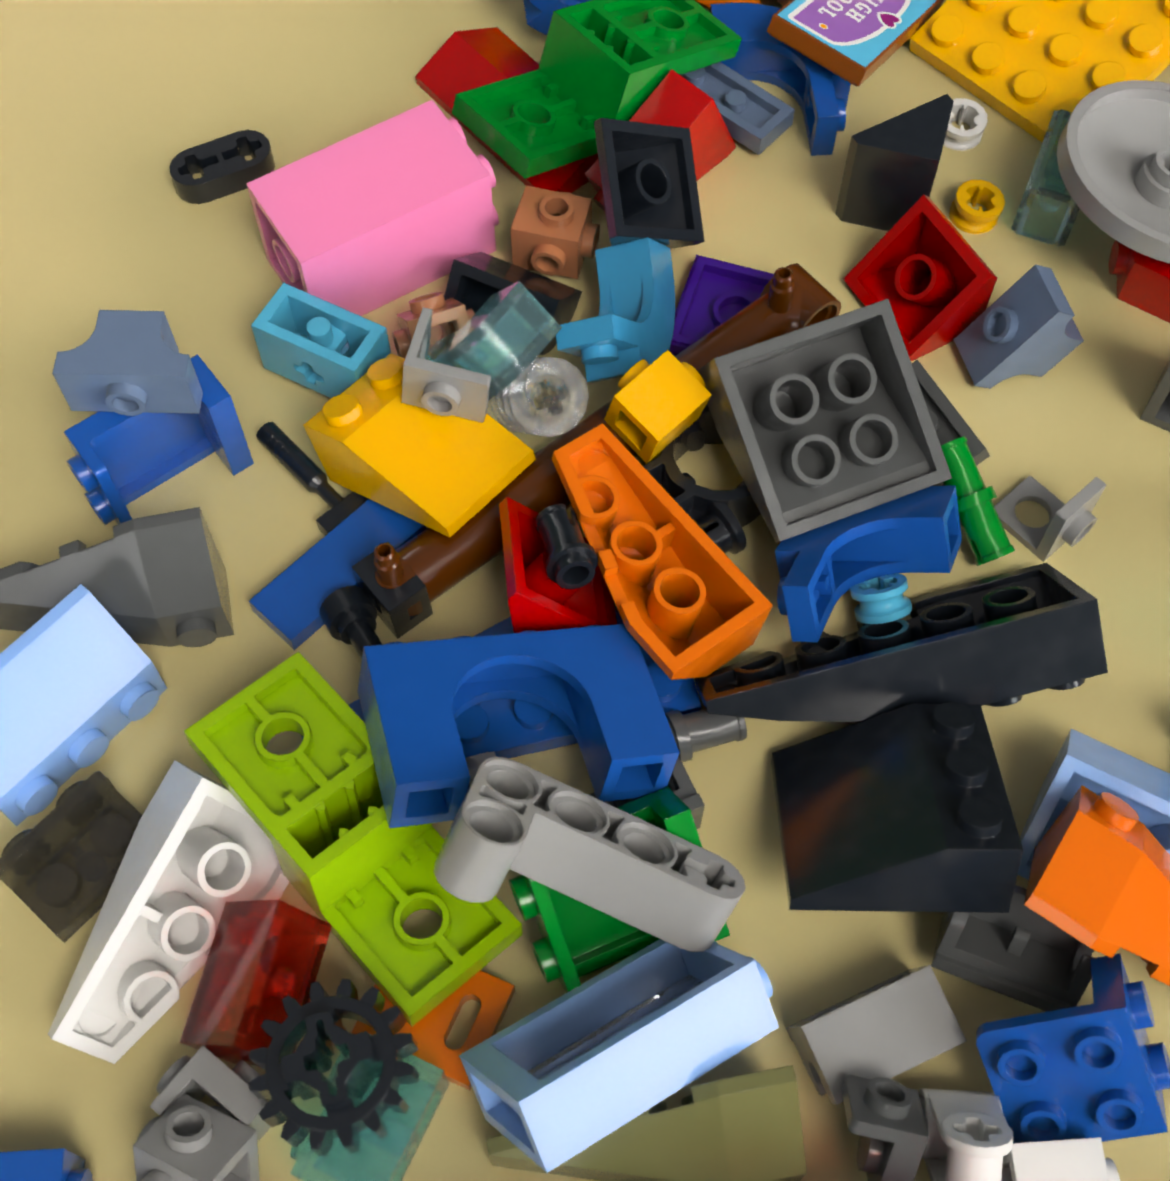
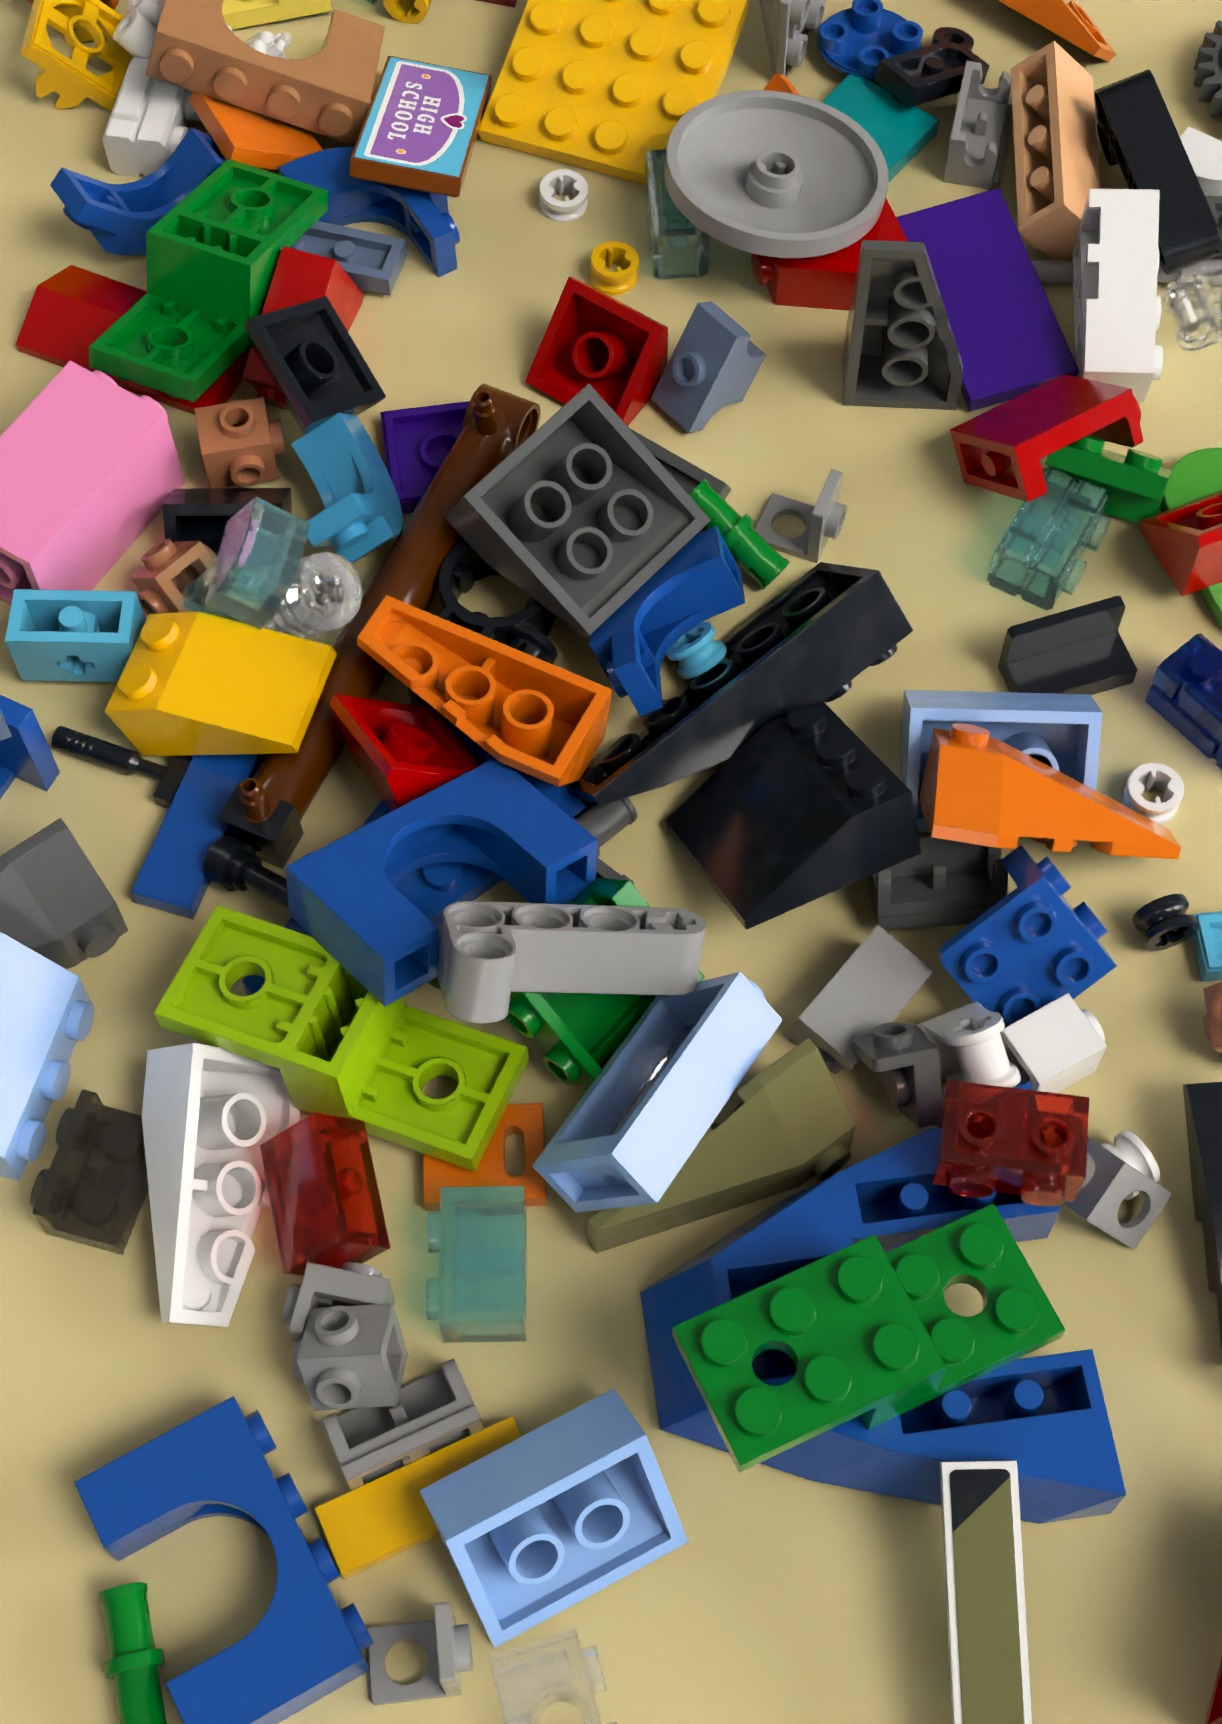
camera: 25 degrees left, 0 degrees up
(301, 1072) = (418, 1238): black gear -> none
(439, 386) = (224, 621): light grey bracket -> none
(569, 559) = (420, 723): black pin -> none
(656, 404) = (424, 559): yellow brick -> none
(893, 165) = (528, 260): black slope -> none

